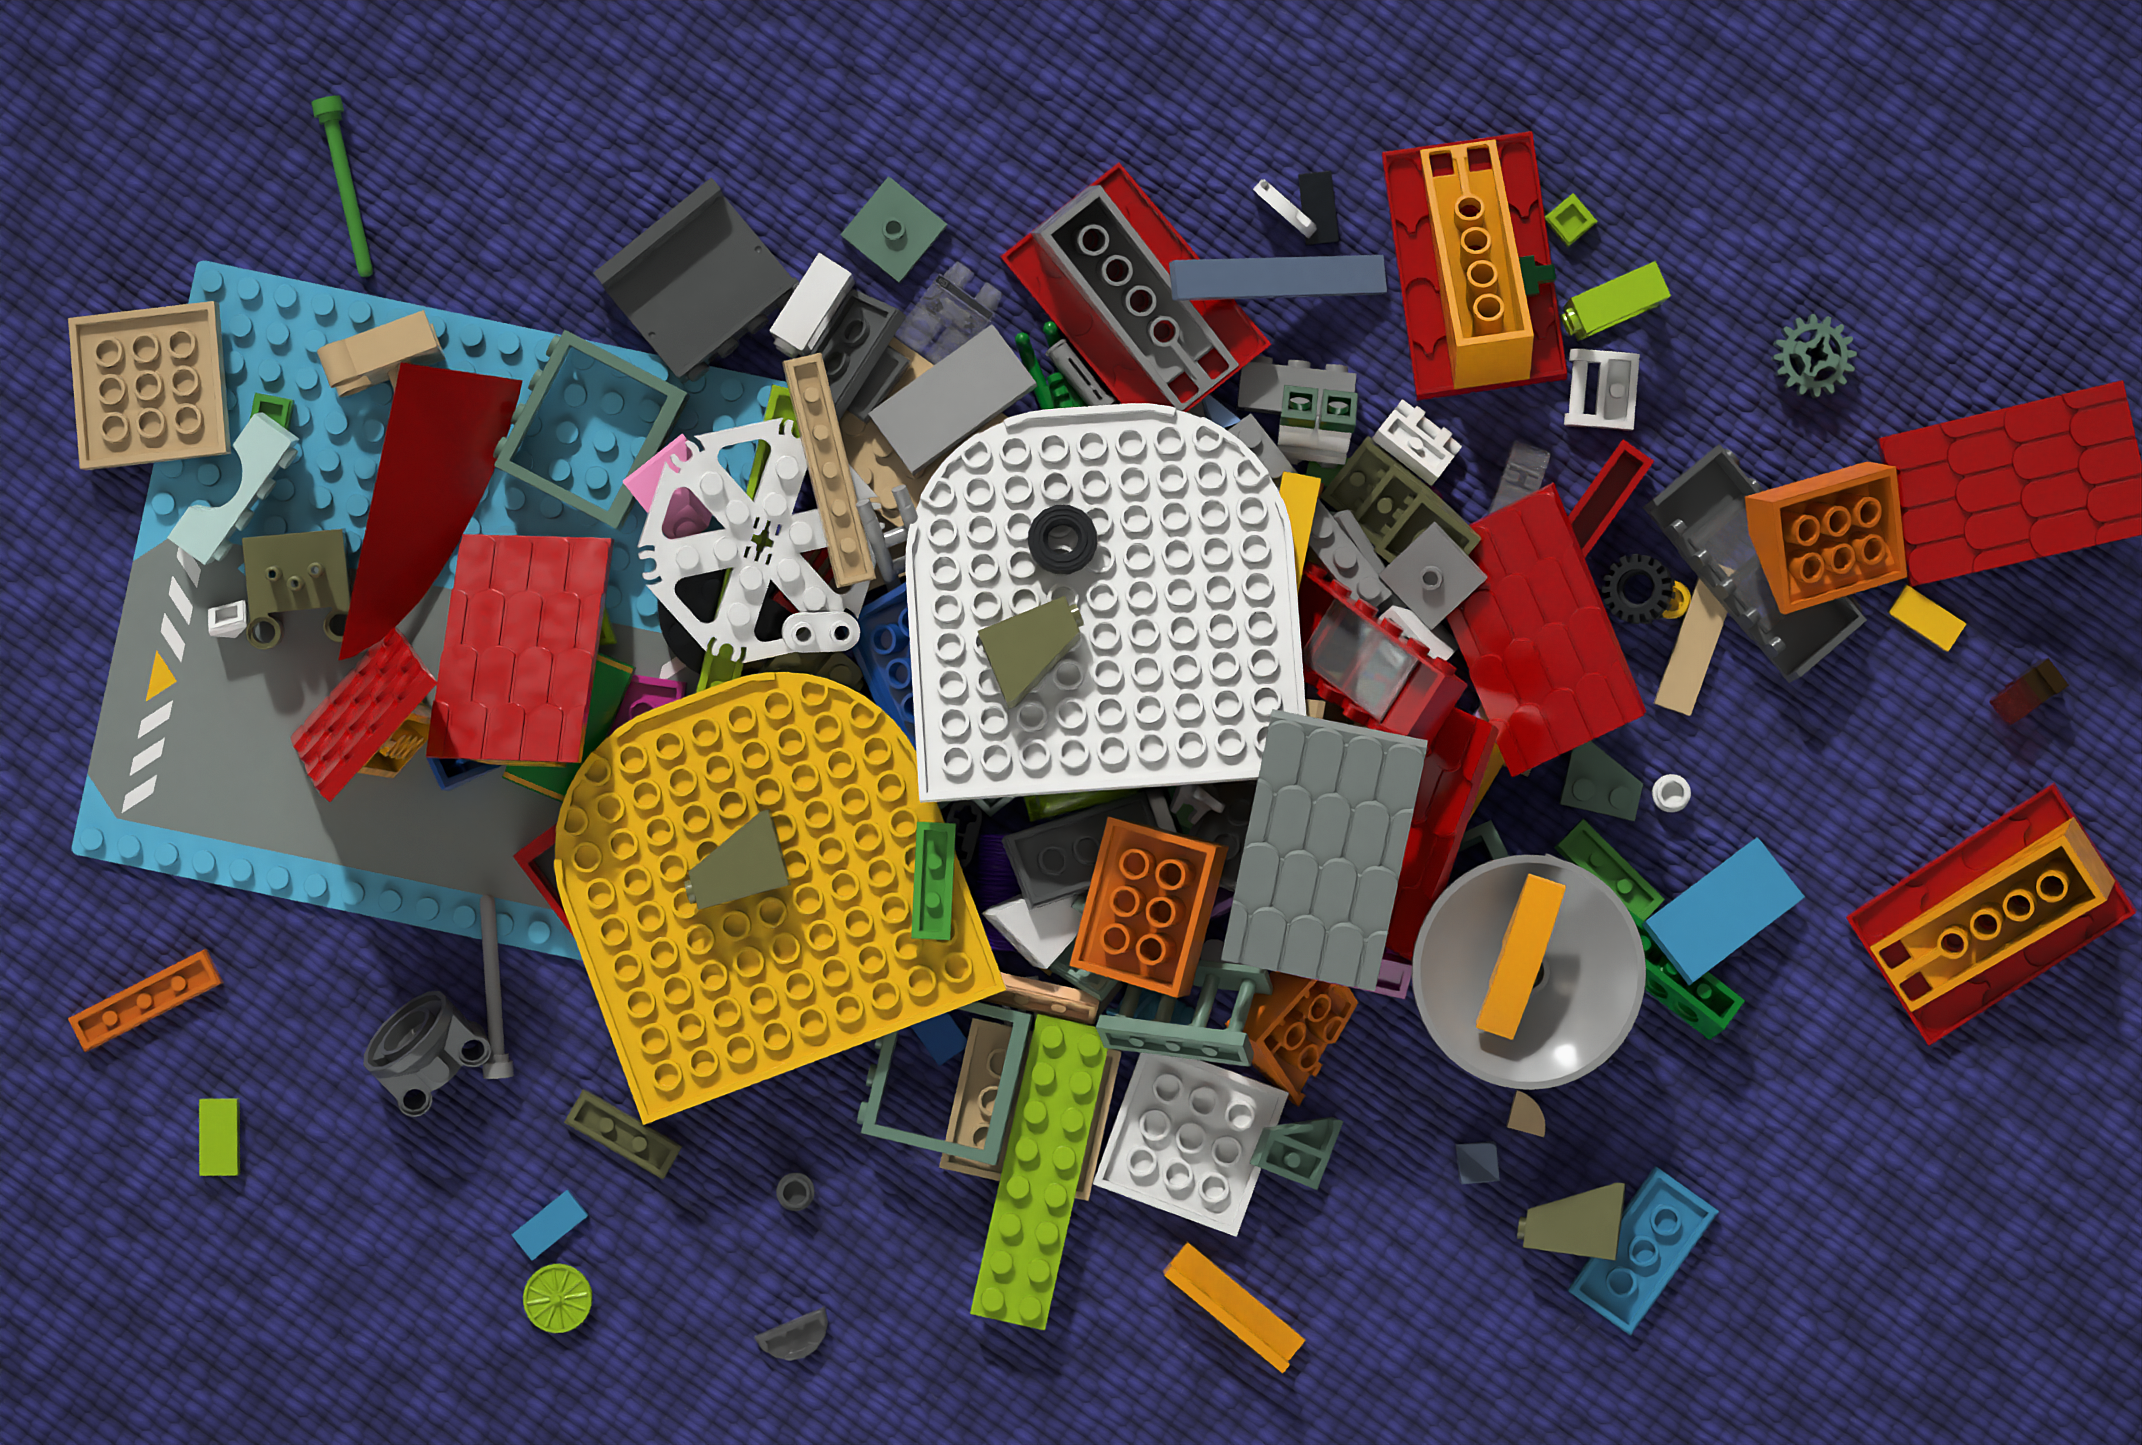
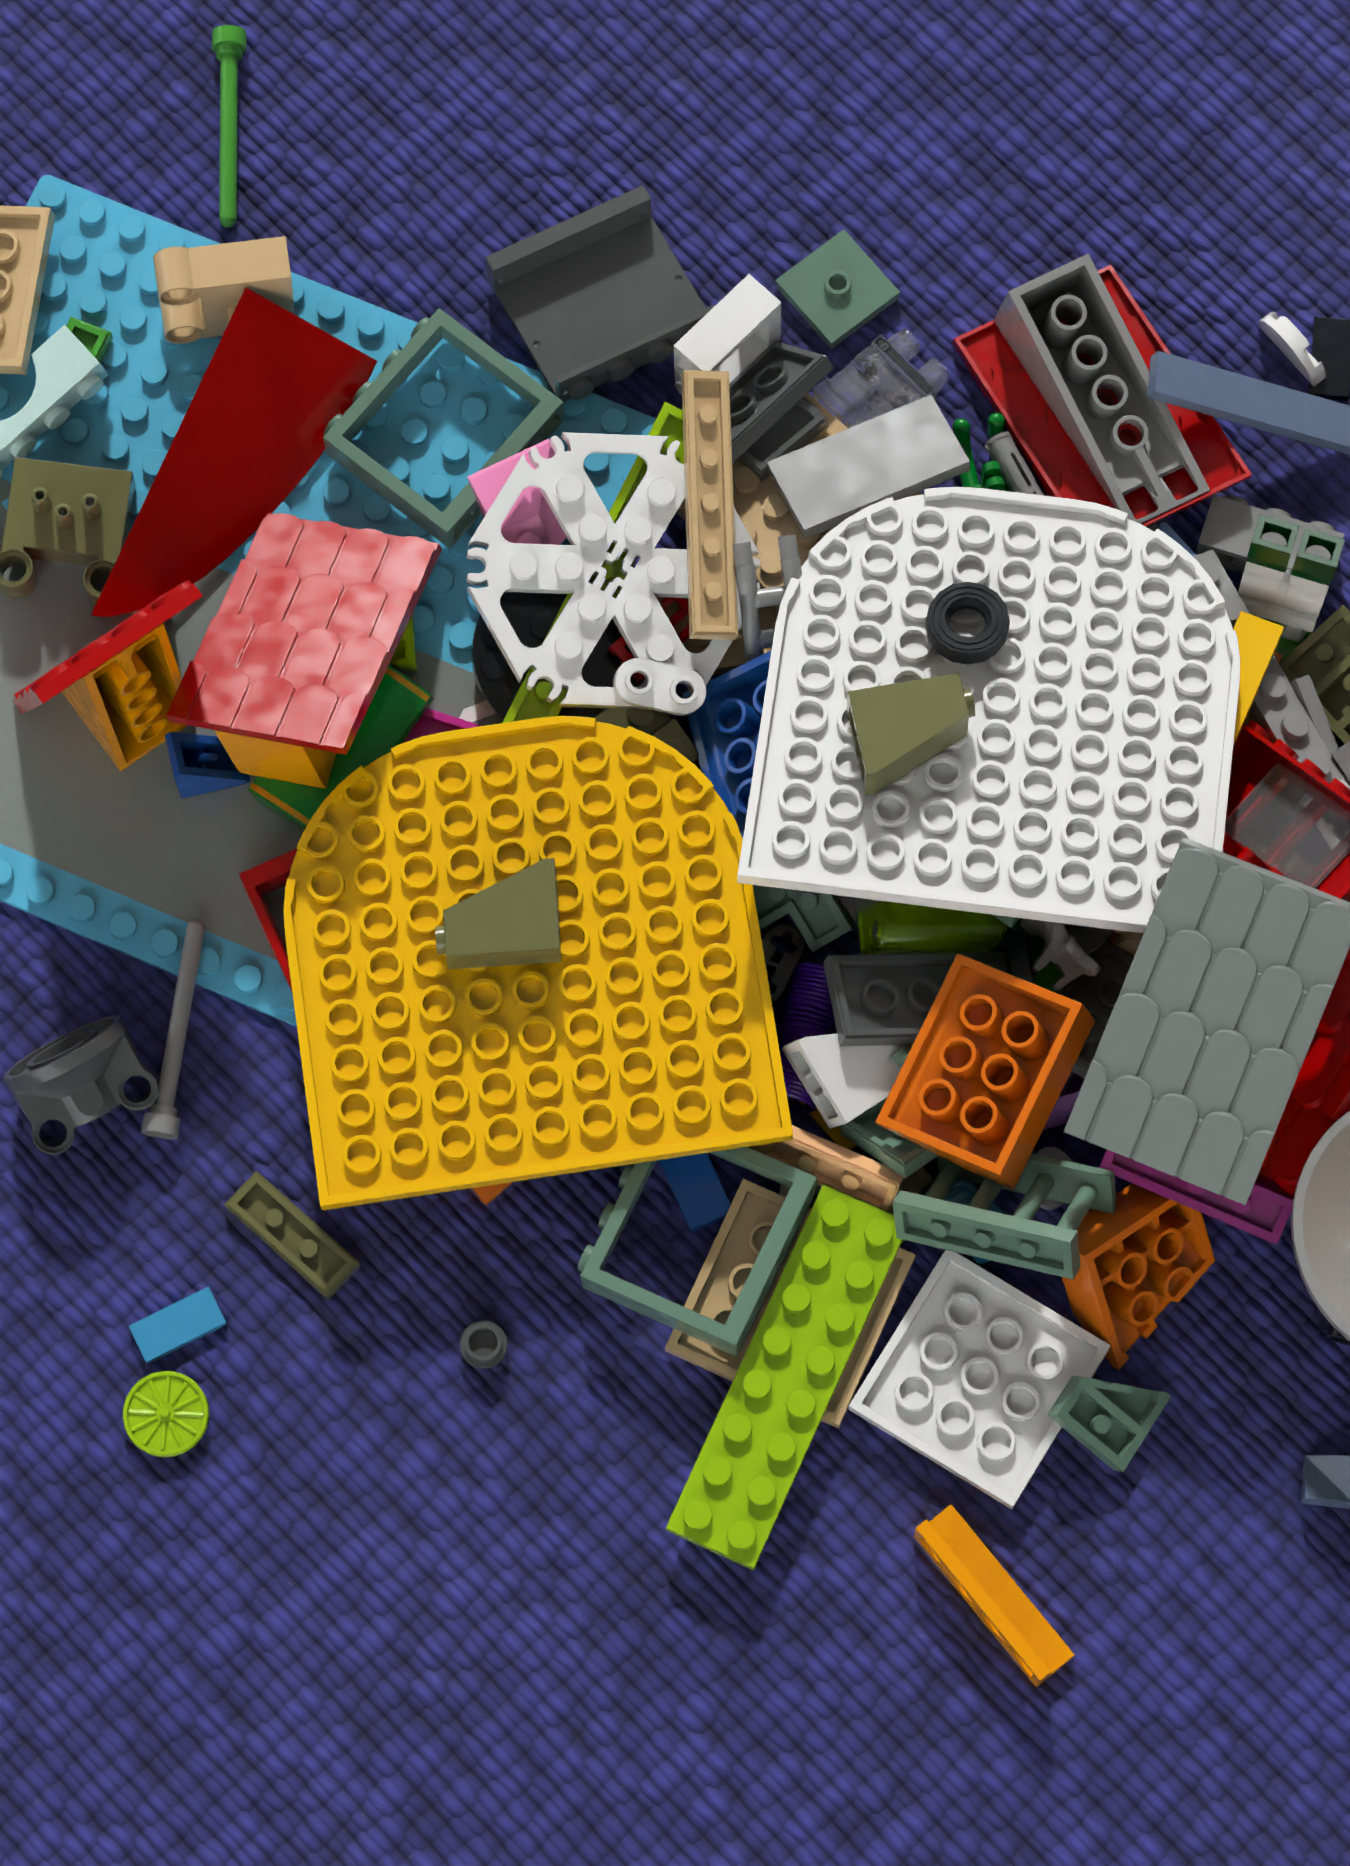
camera: 15 degrees right, 15 degrees down
(795, 1338) = (445, 1522): flat silver tile -> none
(933, 880) = (732, 986): bright green plate -> none

